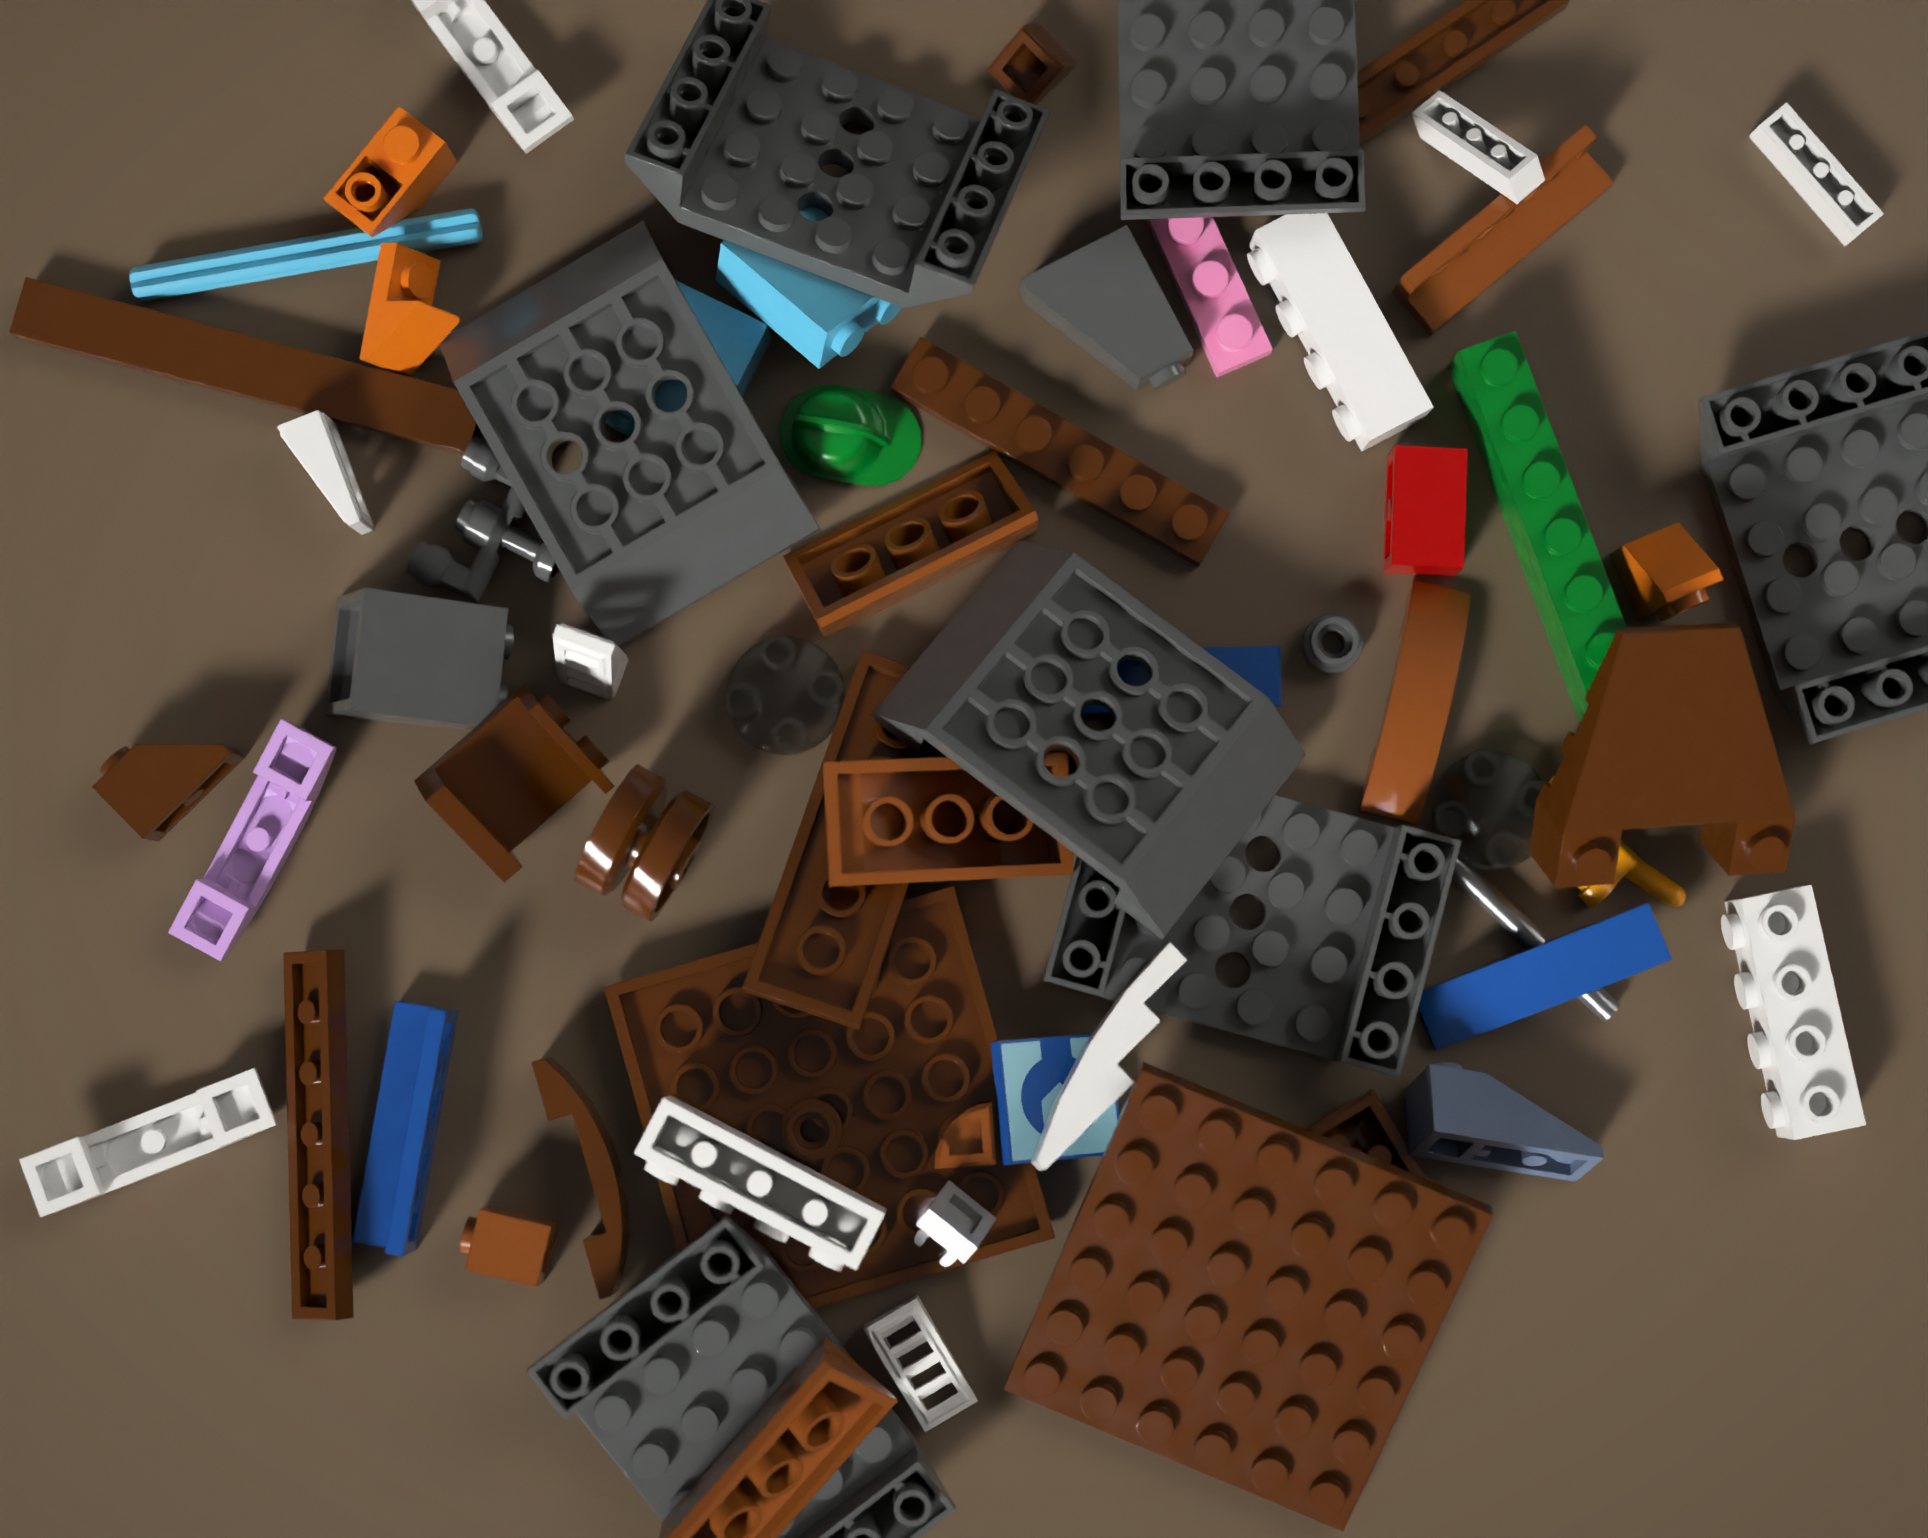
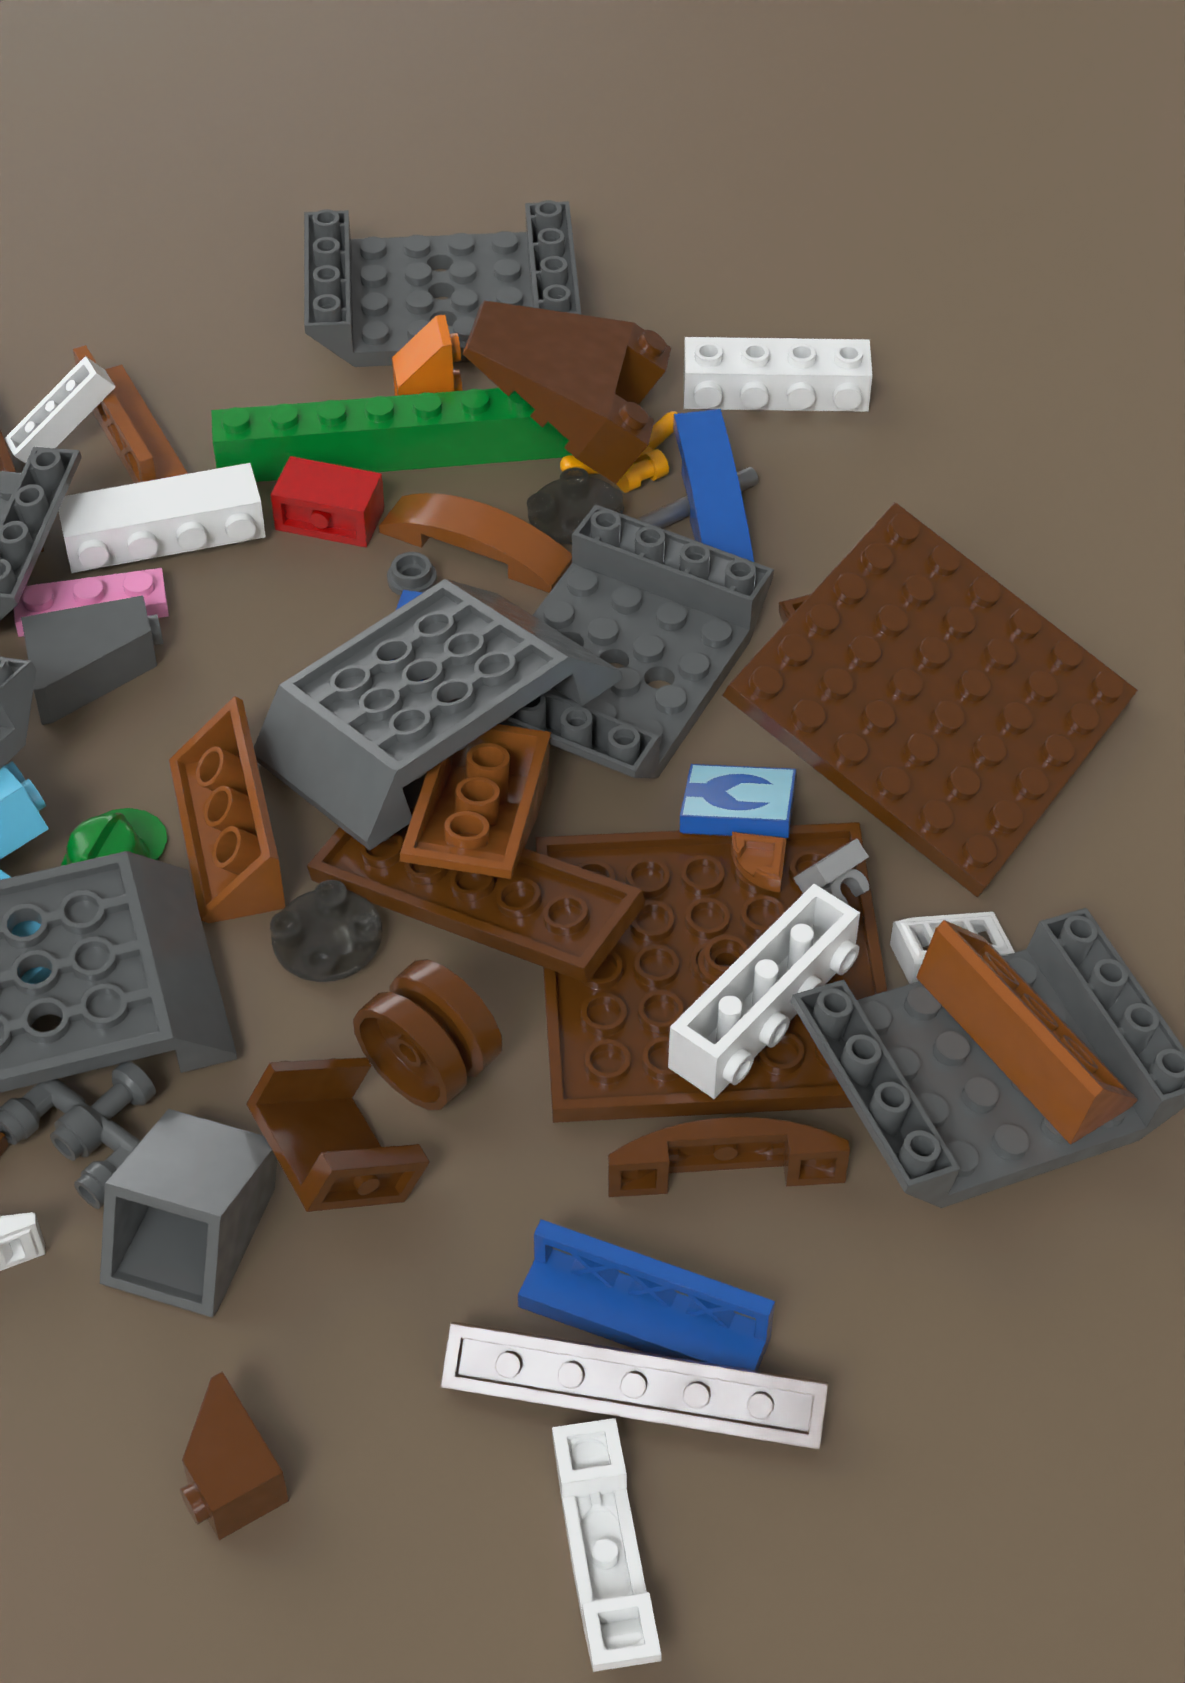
camera: 75 degrees left, 35 degrees down
(257, 841) = (314, 1389): lavender slope -> none
(509, 1245) = (782, 1234): dark orange brick -> none
(588, 661) = (236, 1050): white slope -> none
(1059, 451) = (154, 738): reddish brown plate -> none
(1095, 1076) = (721, 744): white slope -> none
(1486, 1124) = (821, 539): sand blue slope -> none
(1815, 174) = (165, 268): white piece -> none

